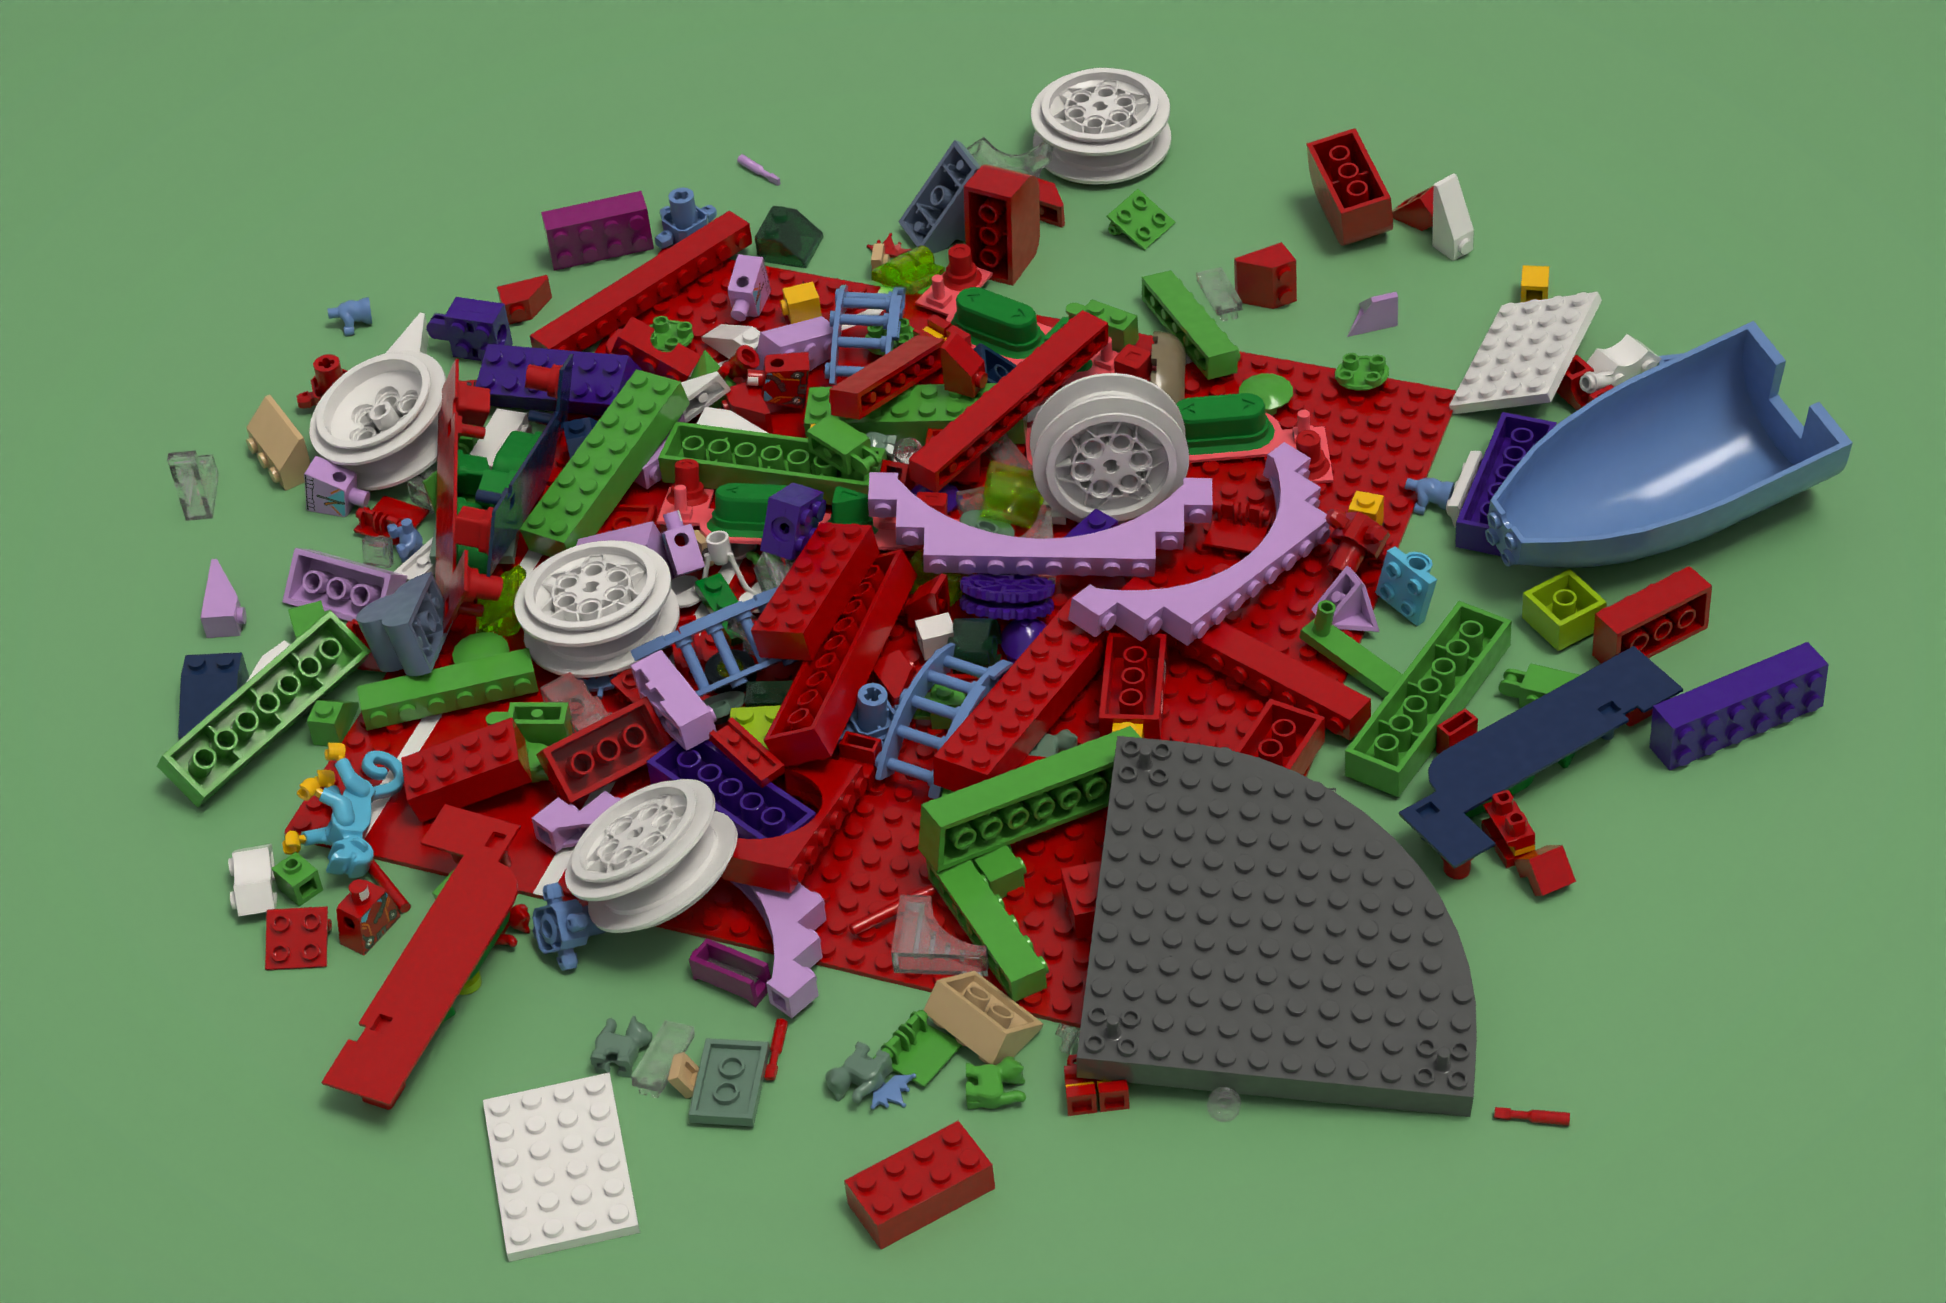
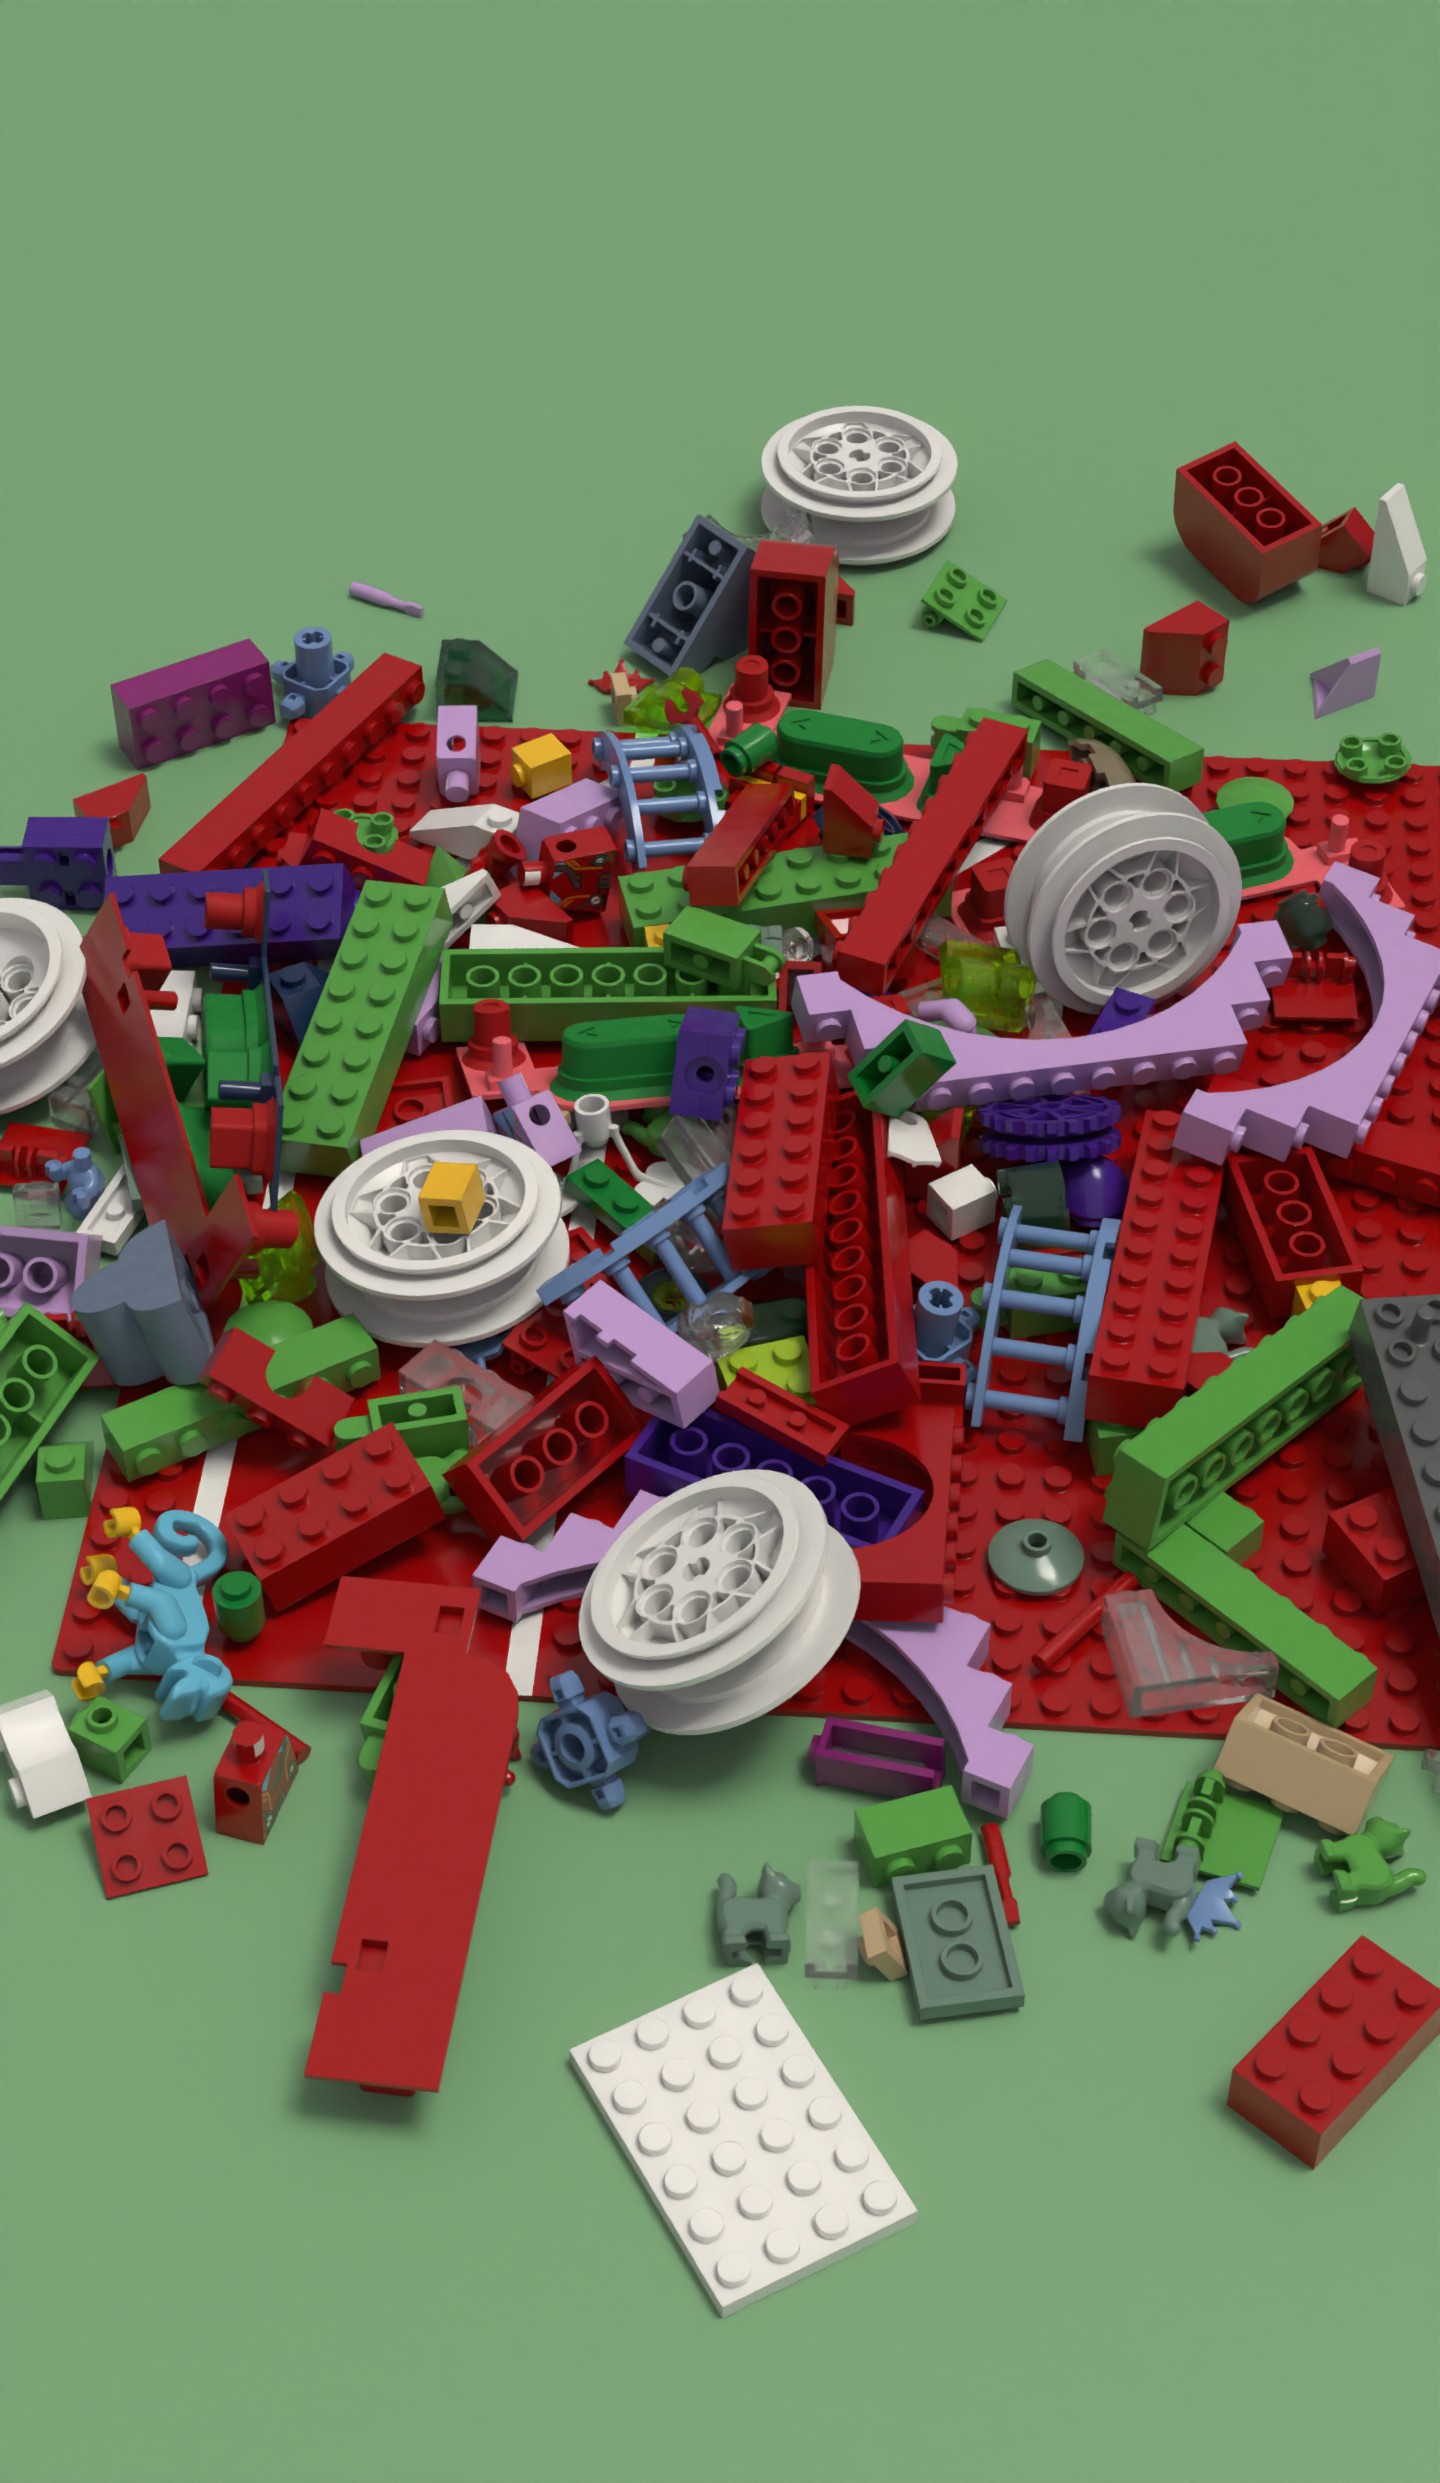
camera: 20 degrees left, 0 degrees up
(394, 814) = (239, 1606): none -> green brick
(436, 674) = (239, 1376): none -> red arch
(594, 584) = (451, 1198): none -> yellow brick
(730, 1016) = (912, 1835): none -> bright green brick
(732, 690) = (717, 1324): none -> clear hair
(822, 1031) = (1066, 1832): none -> green brick
(882, 866) = (1035, 1557): none -> sand green dish
(907, 543) = (901, 1068): none -> green brick
(907, 590) = (912, 1140): none -> white piece
(908, 282) = (691, 716): none -> red bar
(930, 311) = (749, 750): none -> green brick
(980, 512) = (949, 1011): none -> lavender arm
(1249, 480) = (1304, 920): none -> head

